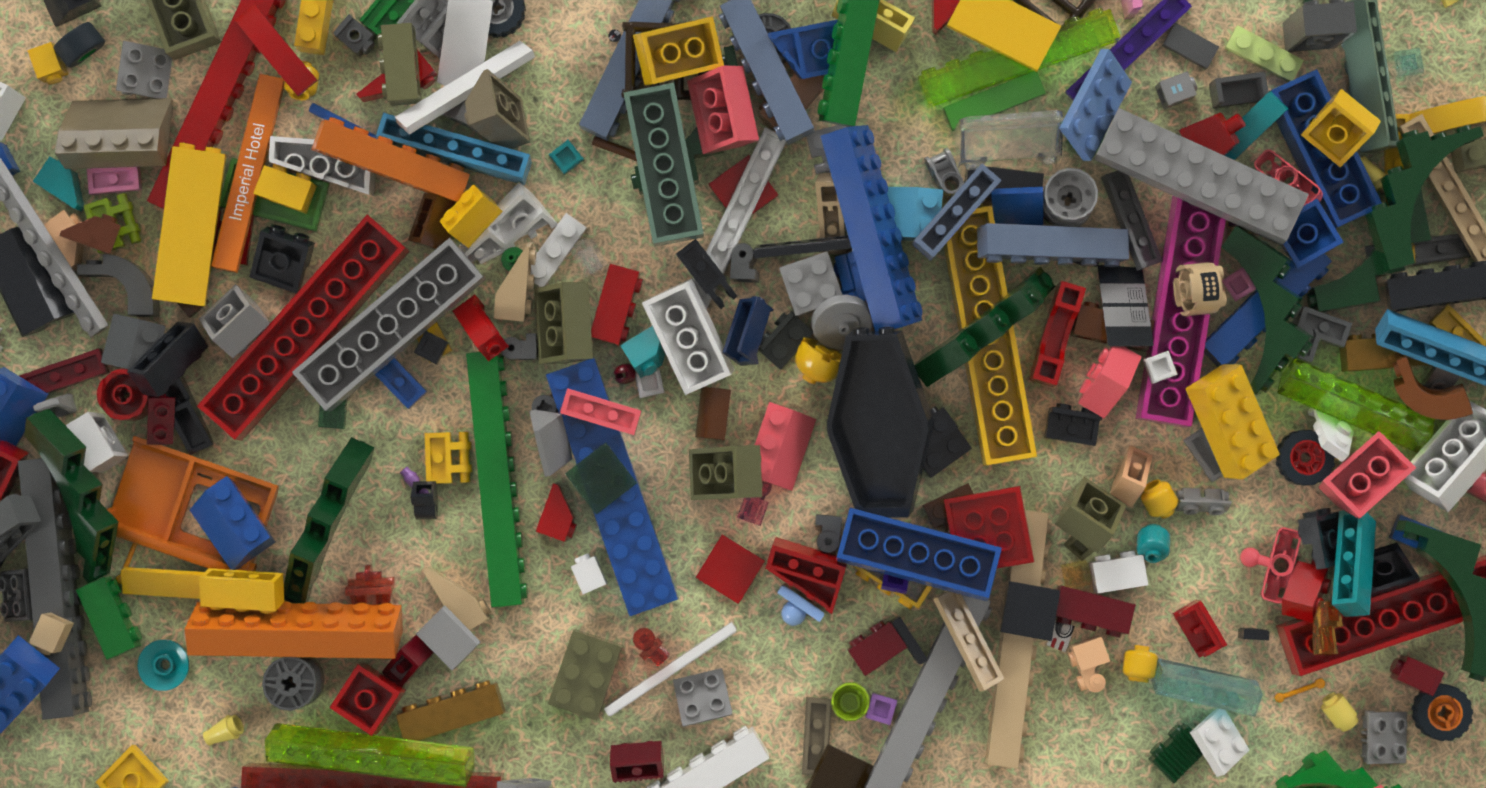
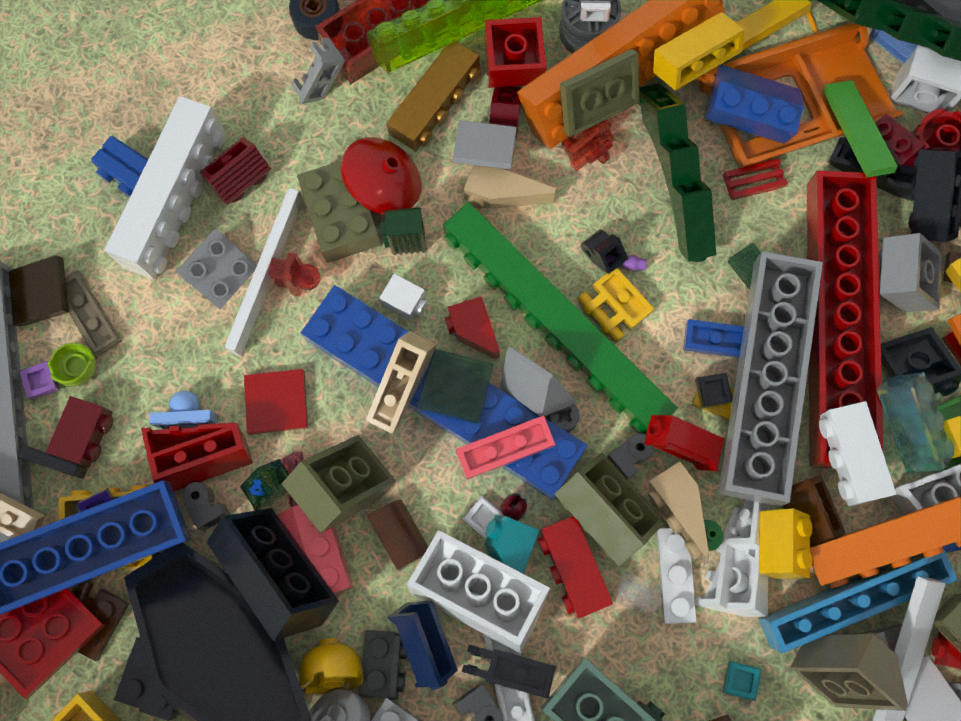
camera: 150 degrees right, 10 degrees down
(176, 448) = (860, 129): none -> bright green tile
(255, 463) = (777, 173): none -> red tile
(289, 677) = (595, 10): none -> white slope
(321, 224) = (916, 422): none -> clear light blue brick
(337, 611) = (600, 92): none -> olive tile
(380, 234) = (856, 454): none -> white brick
(545, 679) = (380, 175): none -> red dish
(552, 620) = (403, 231): none -> dark green brick
(635, 508) = (400, 381): none -> tan slope
(775, 511) = (265, 485): none -> clear green brick
(810, 447) = (272, 573): none -> black brick

